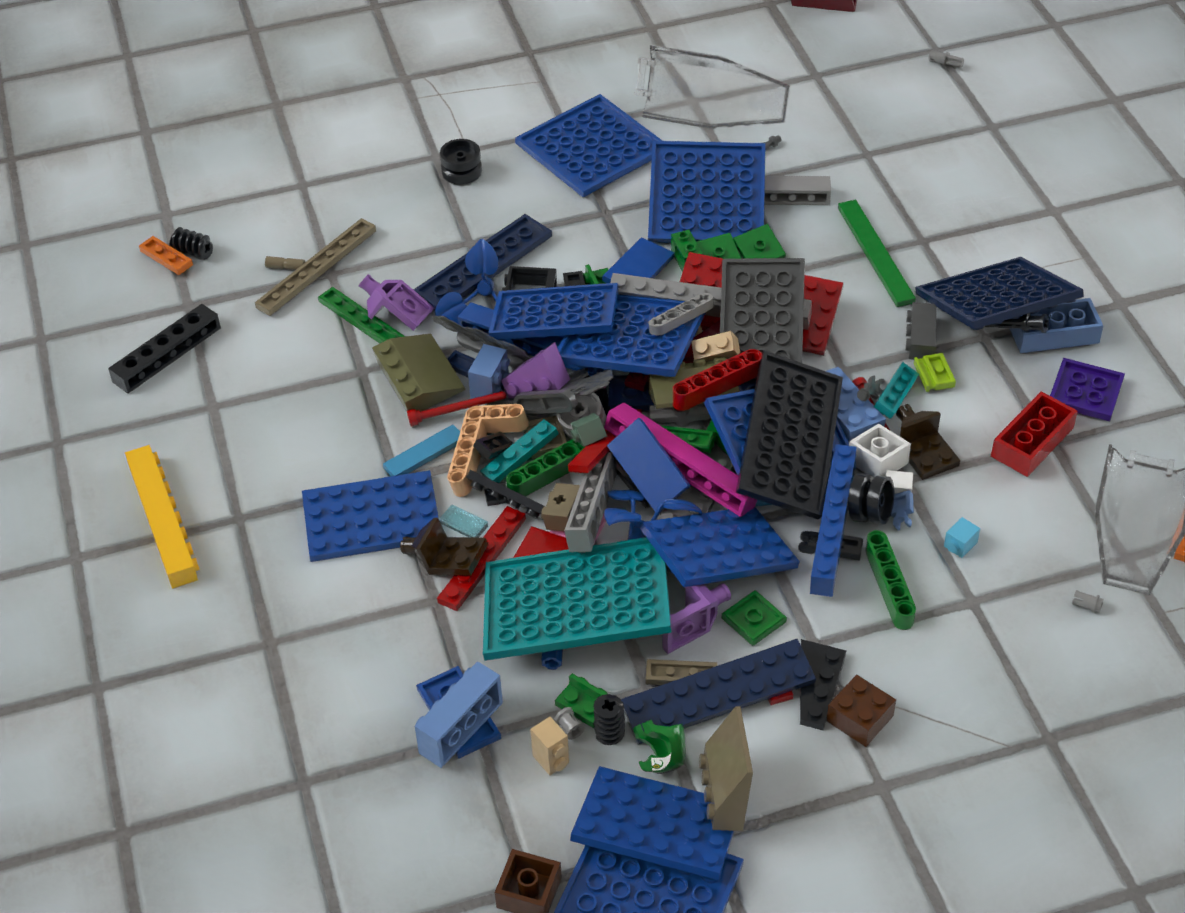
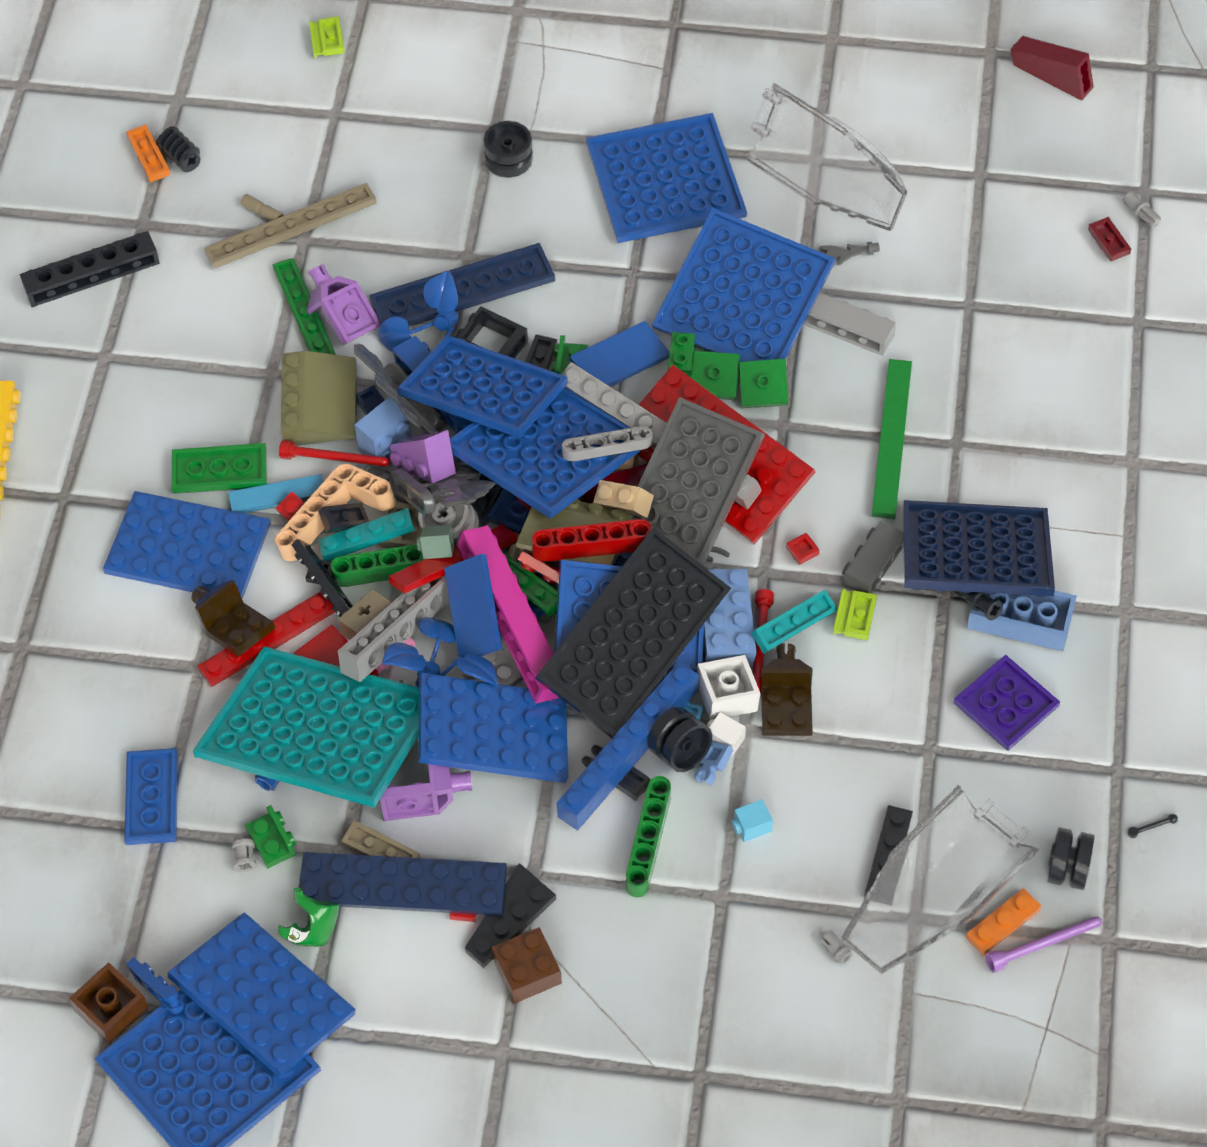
camera: 25 degrees right, 10 degrees up
(266, 136) = (326, 37): none -> lime plate
(363, 449) = (218, 468): none -> green plate
(443, 455) = (289, 506): none -> red plate
(458, 714) = (138, 803): medium blue brick -> none
(463, 522) = (271, 591): clear light blue tile -> none
(550, 746) = (206, 872): tan brick -> none
(568, 854) = (156, 986): none -> blue plate
(609, 719) = (277, 869): black piece -> none
(675, 419) = (549, 572): none -> plate
(727, 774) = (343, 979): dark tan slope -> none
(754, 617) = (490, 818): green tile -> none
(864, 343) = (802, 548): none -> red plate
(870, 389) = (764, 610): dark grey piece -> none
(937, 83) = (1109, 239): none -> dark red plate
(1034, 433) = (907, 733): red brick -> none
(1076, 523) = (893, 832): none -> black plate

